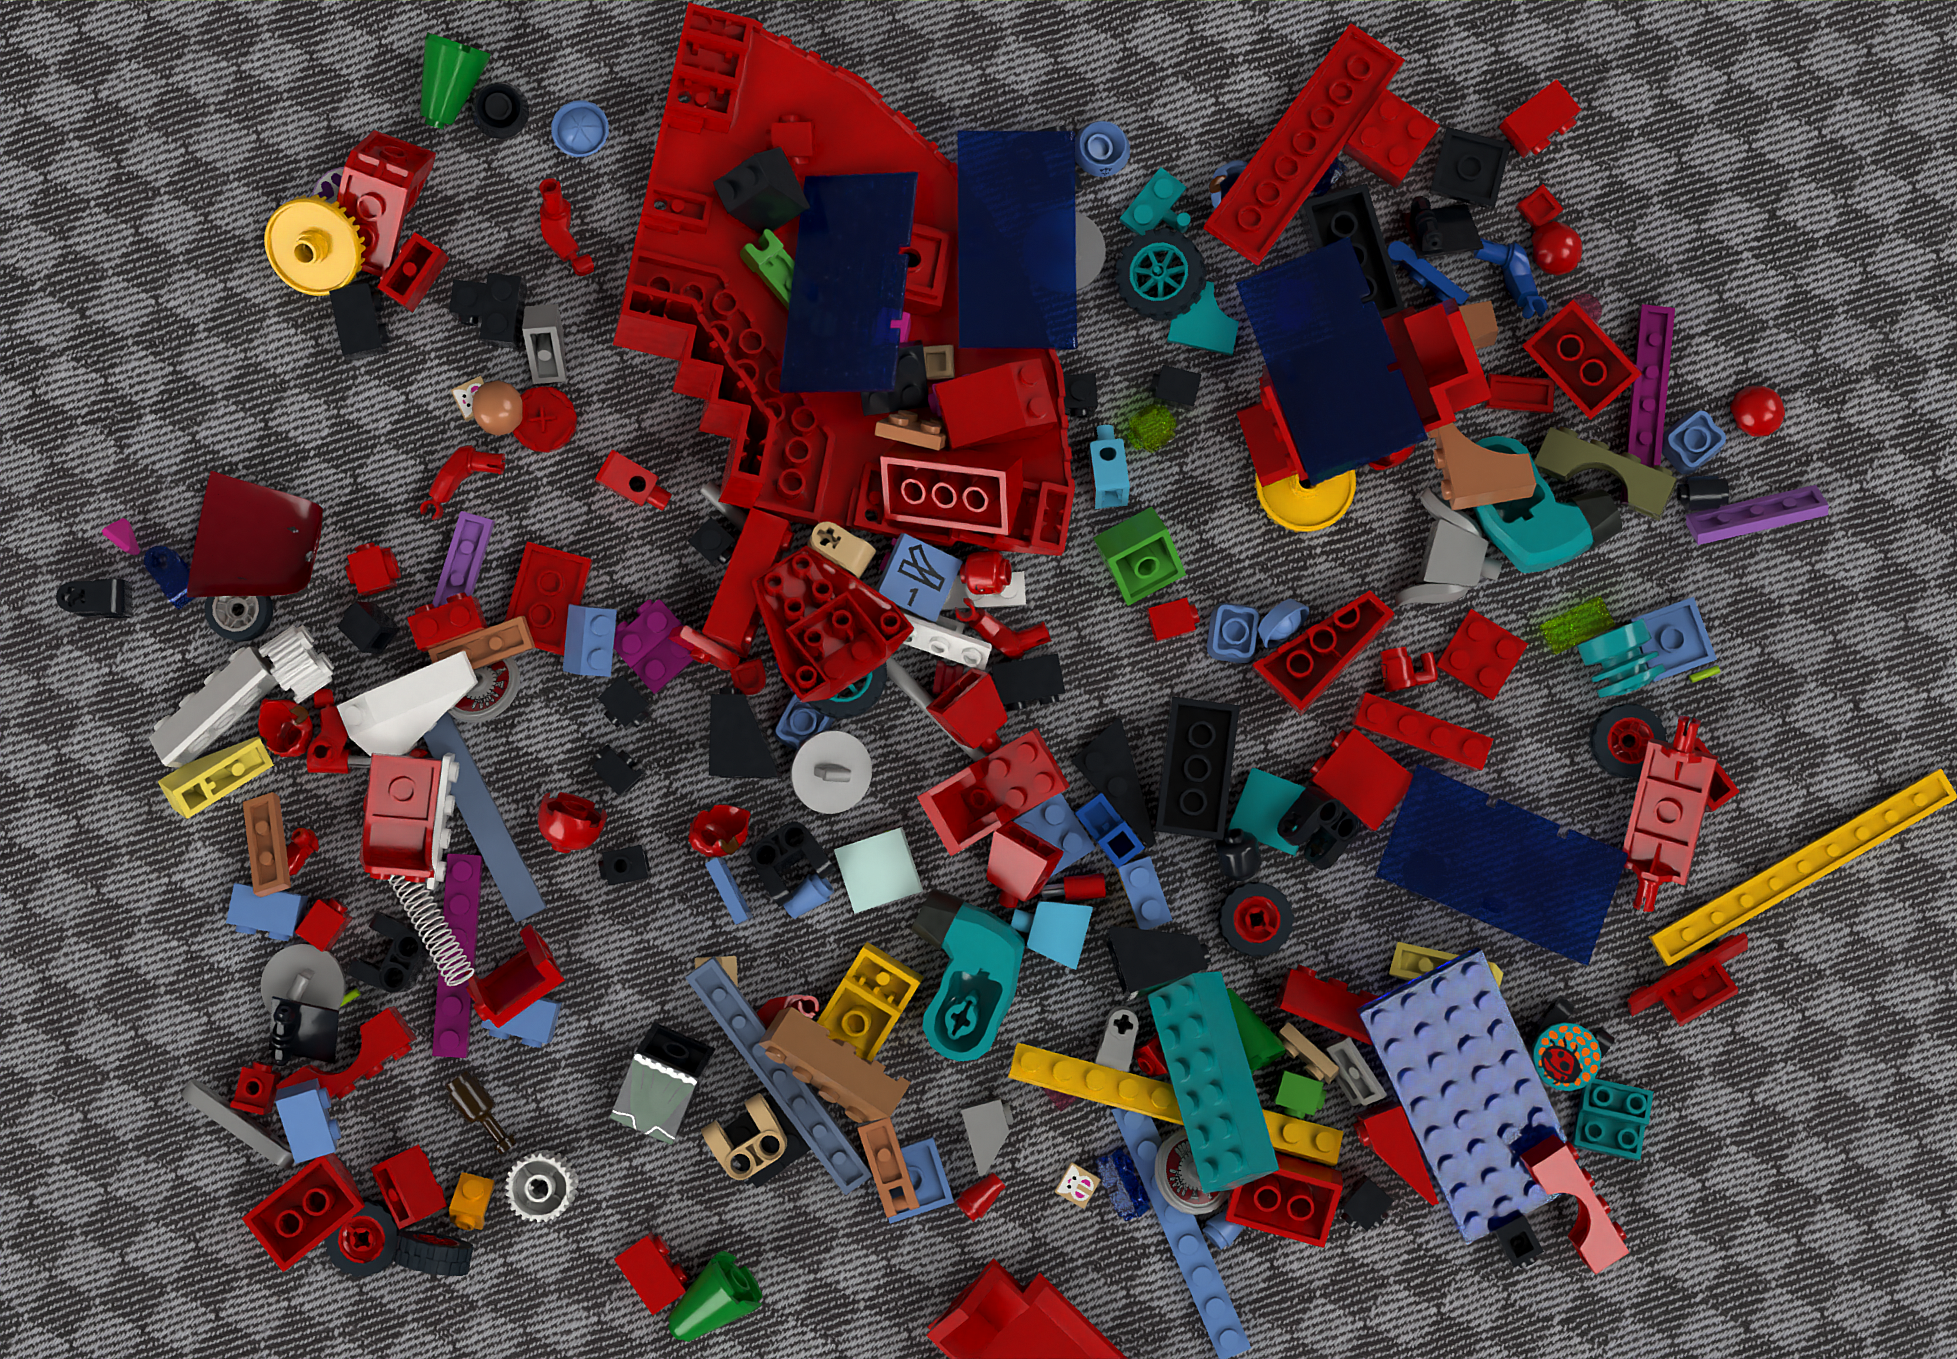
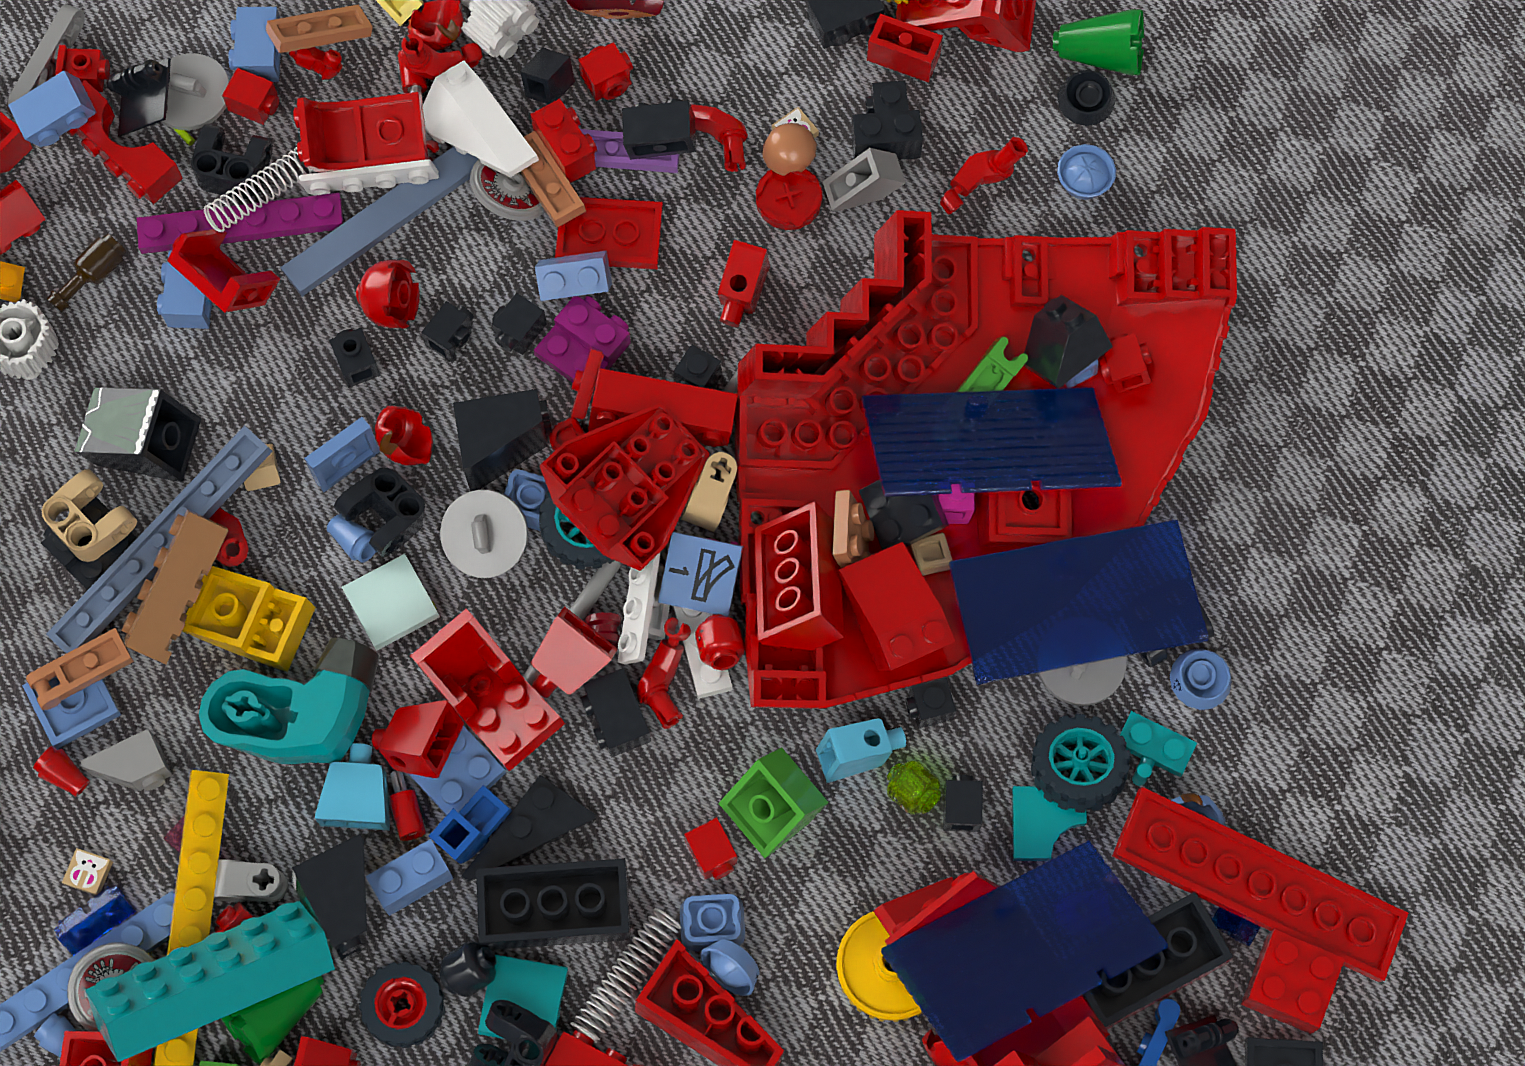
camera: 75 degrees right, 15 degrees down
(454, 528) = (659, 129): none -> black brick
(1263, 713) = (659, 917): none -> white piece

